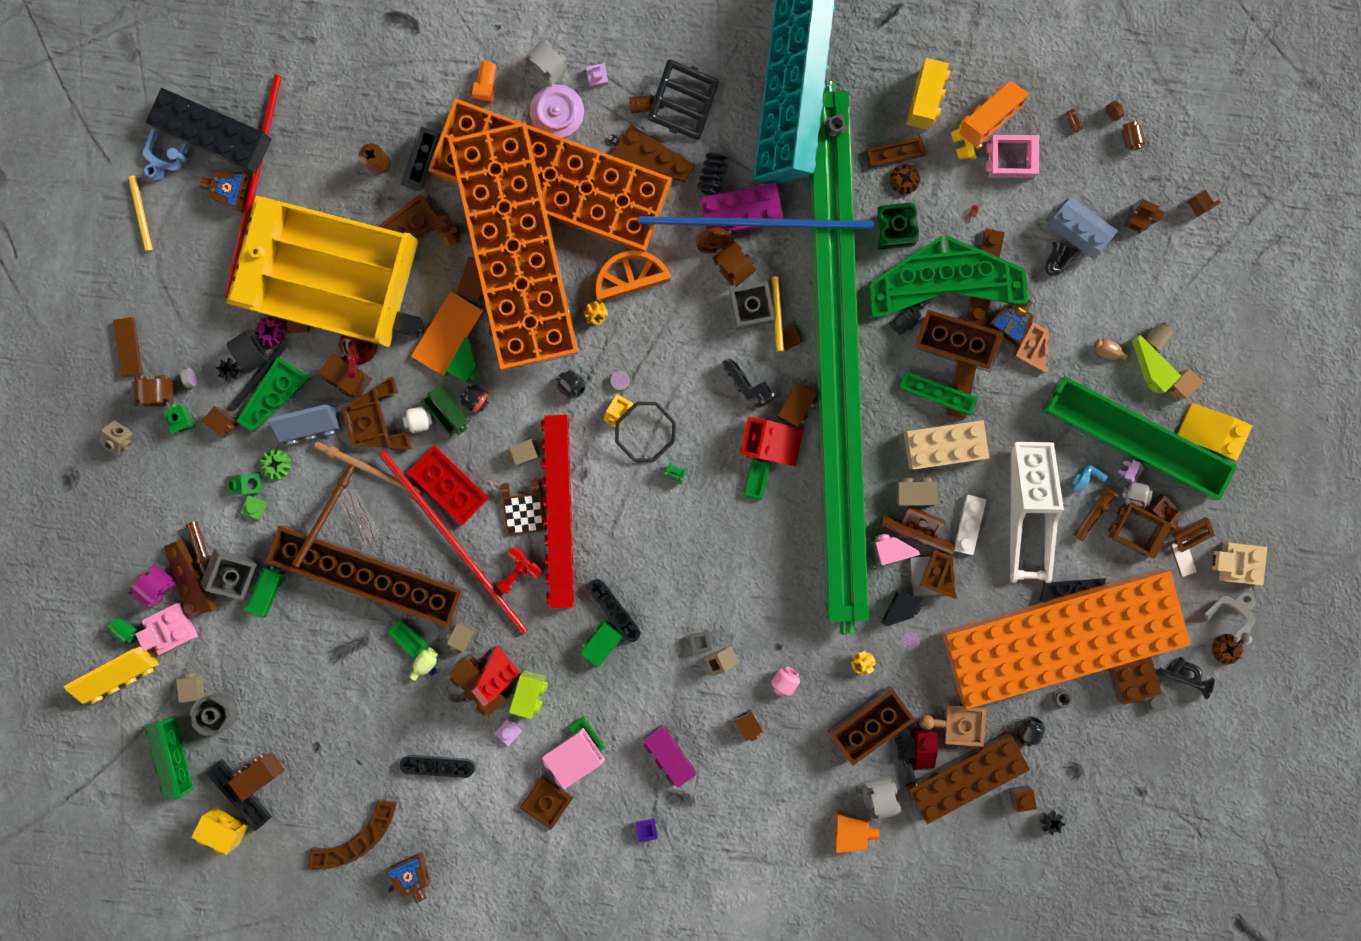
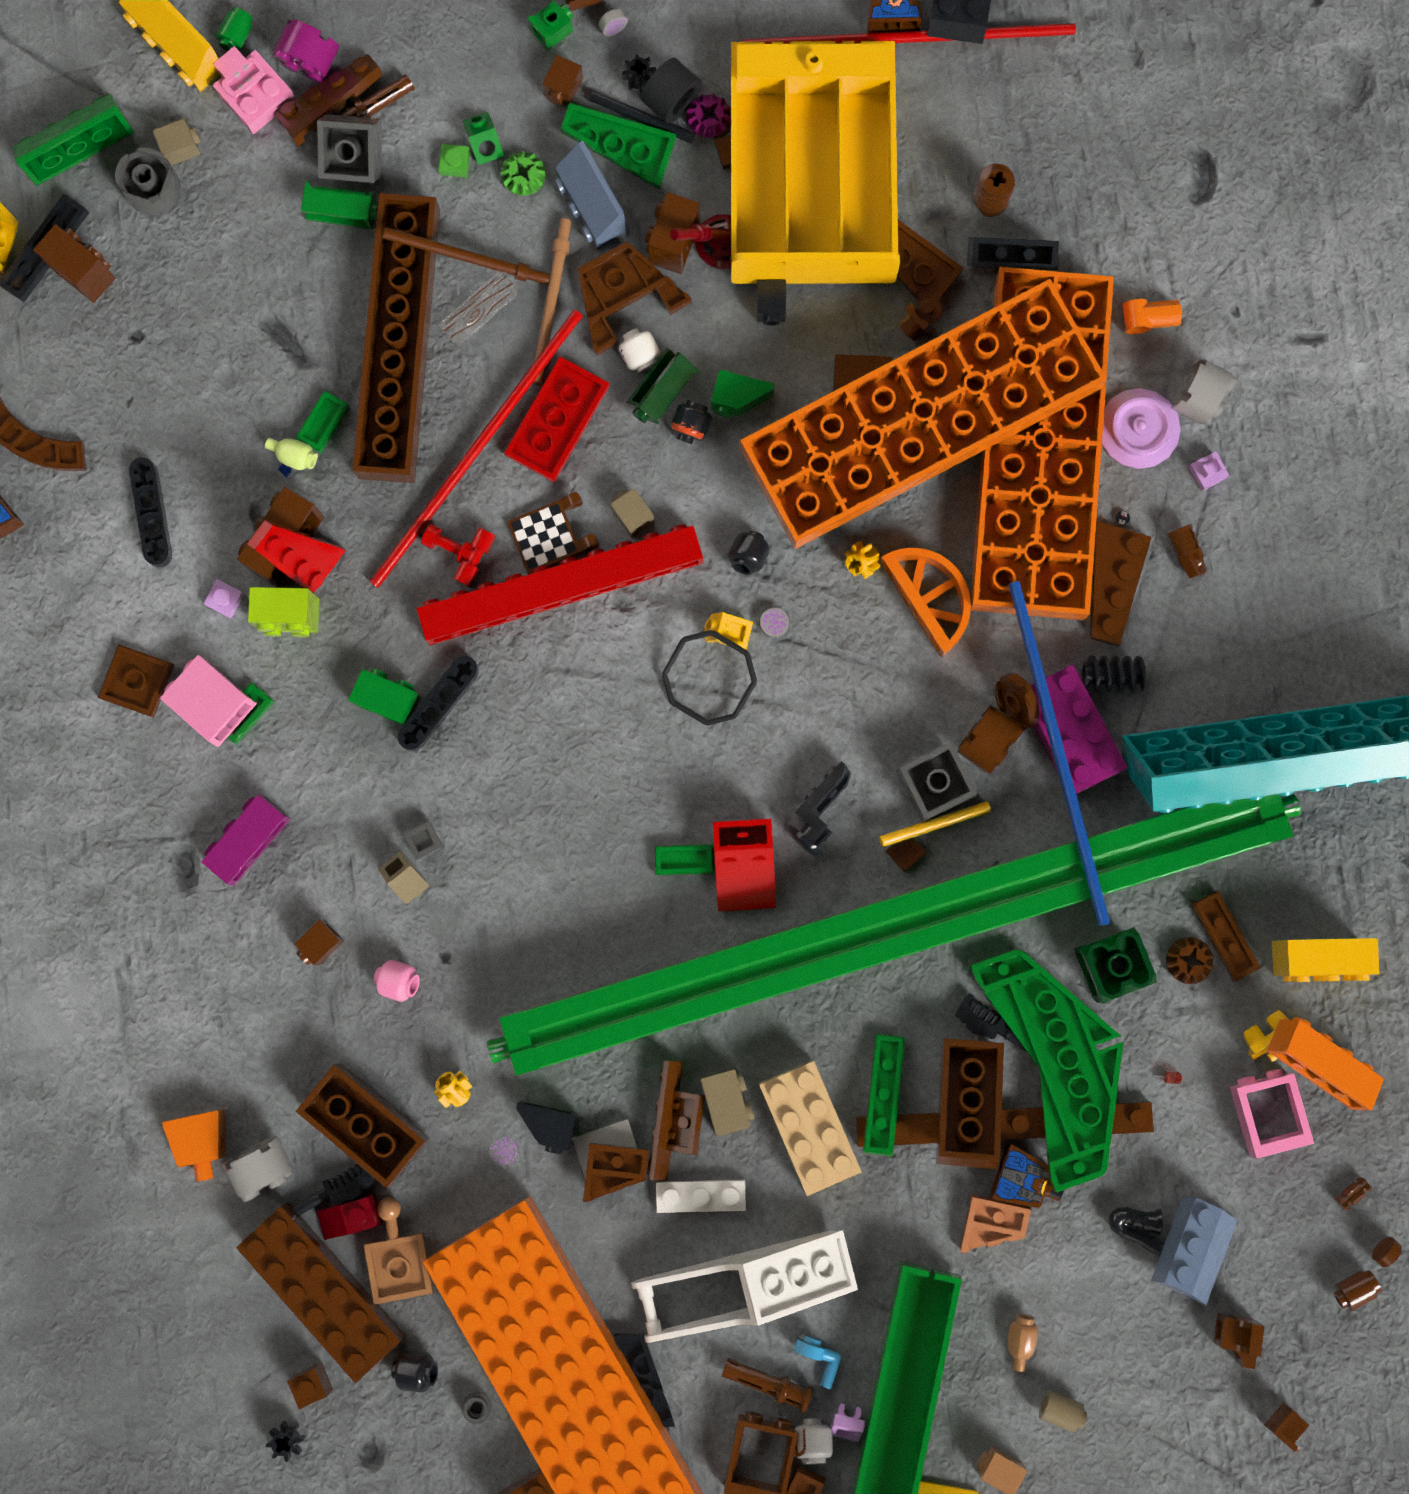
camera: 80 degrees right, 5 degrees down
(446, 332) = (791, 362): orange tile -> none
(460, 637) = (343, 494): dark tan brick -> none
(646, 830) = (129, 835): dark purple plate -> none
(660, 100) = (1192, 636): black bar -> none
(675, 473) = (660, 737): green bush -> none
(797, 405) = (808, 889): reddish brown brick -> none
(839, 119) = (1245, 830): dark grey plate -> none
(891, 549) = (631, 1085): bright pink slope -> none
(1155, 368) = (1013, 1418): lime slope -> none

